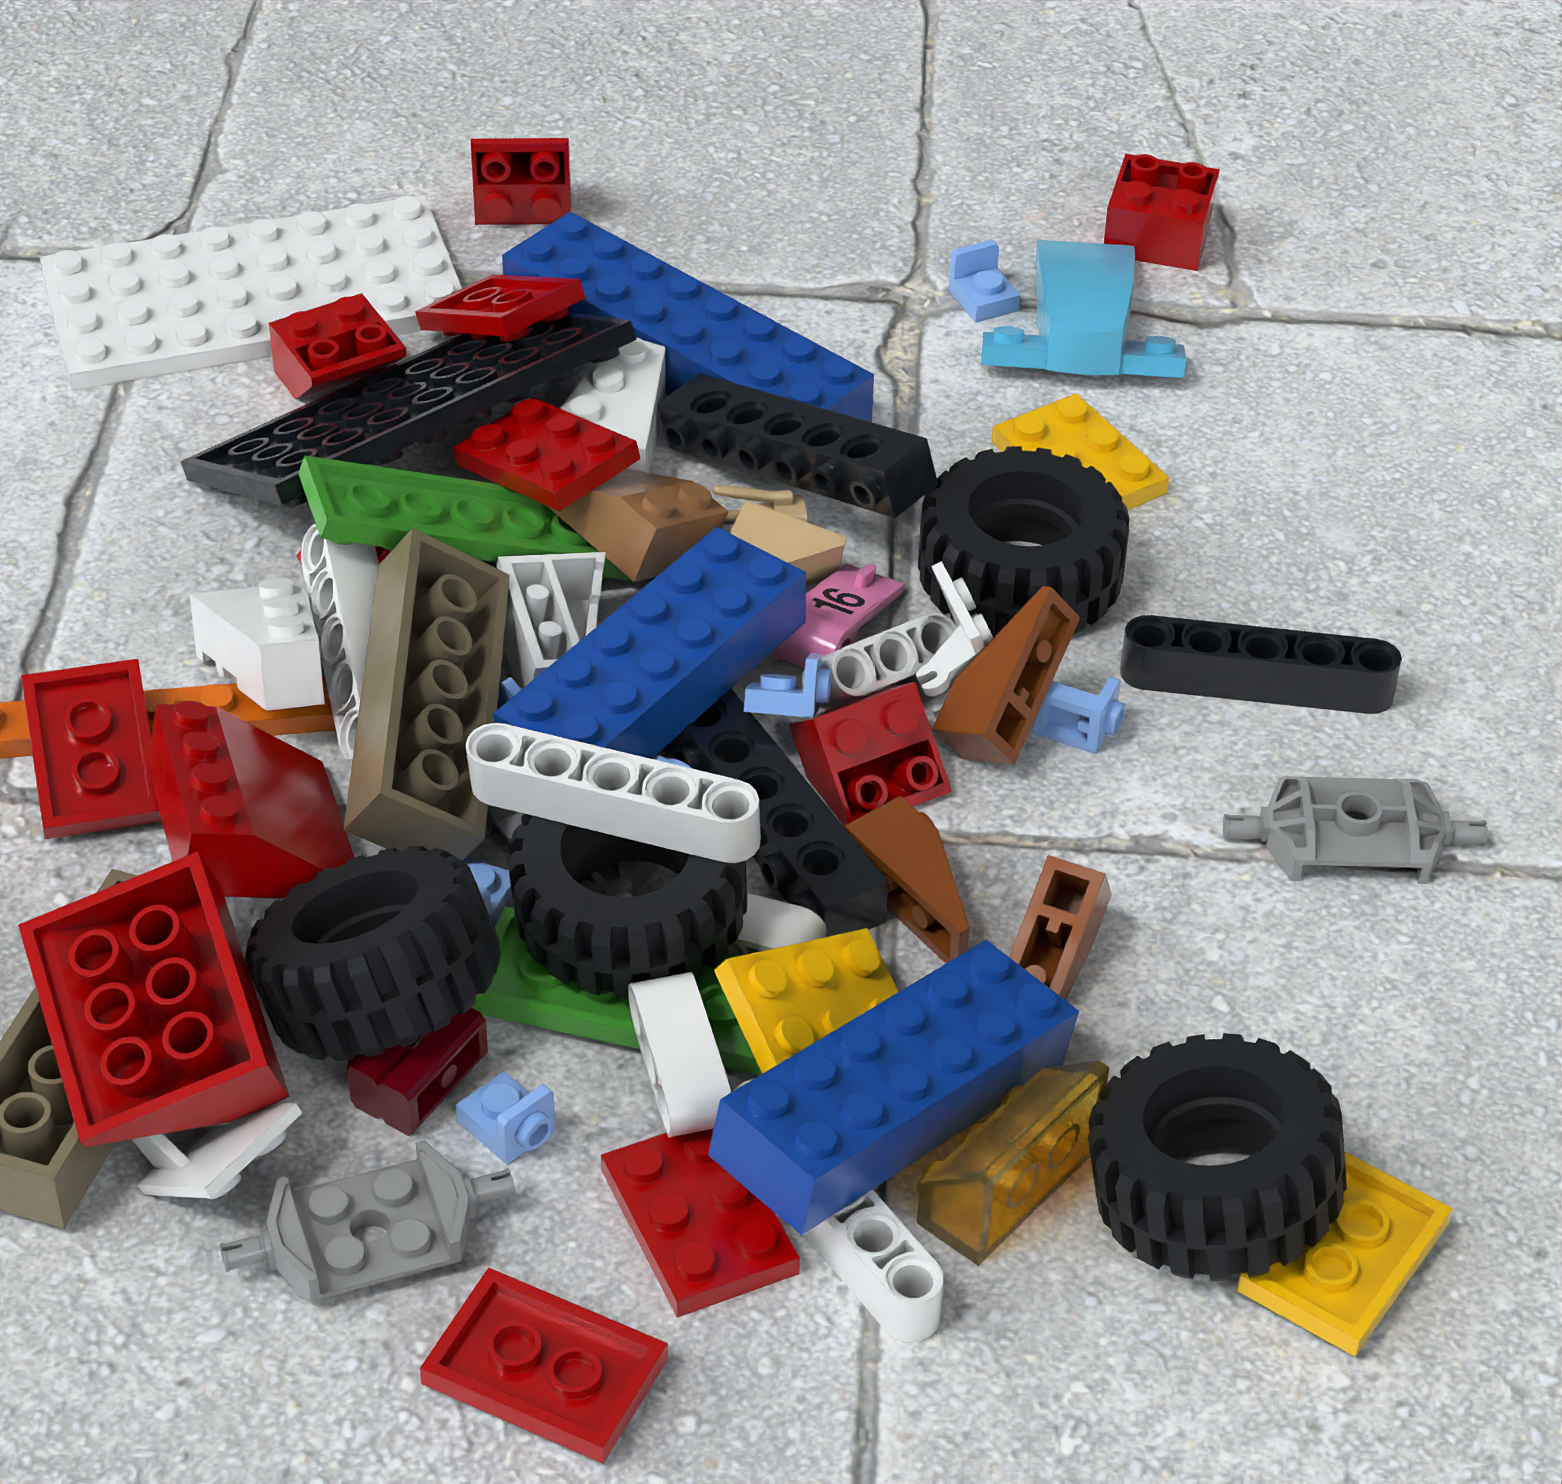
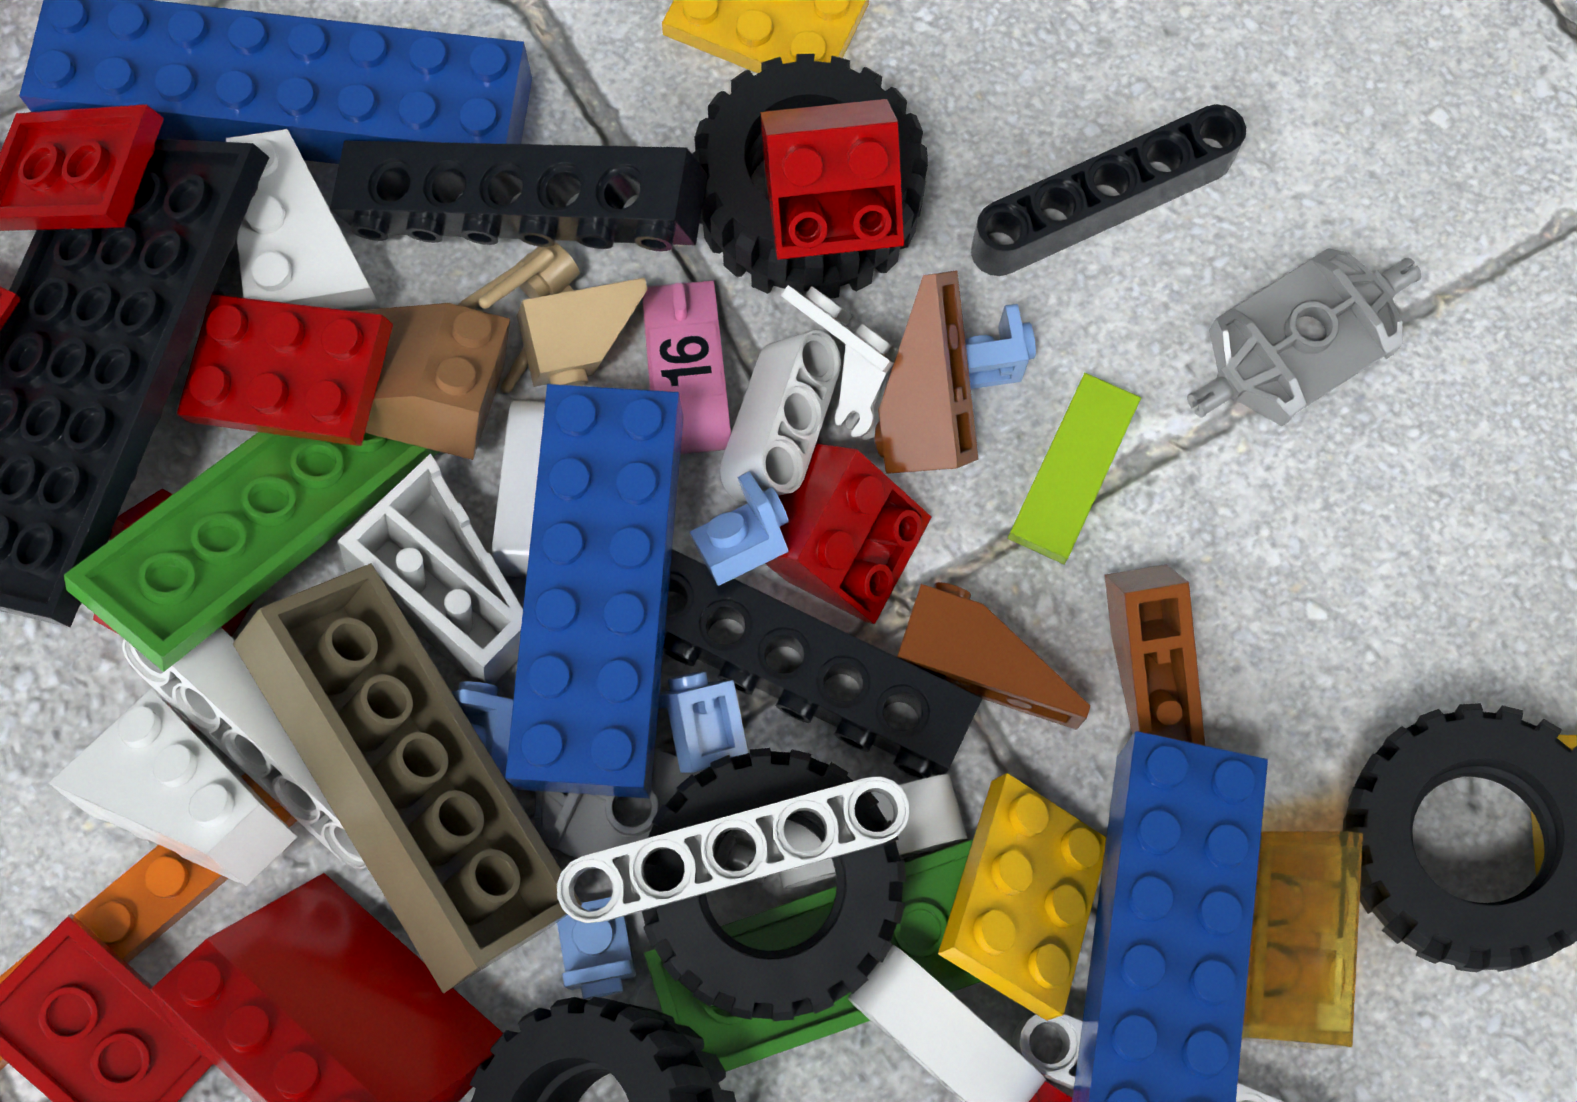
camera: 35 degrees left, 30 degrees up
(1023, 512) = (833, 178): none -> red slope
(1091, 815) = (1074, 468): none -> lime tile

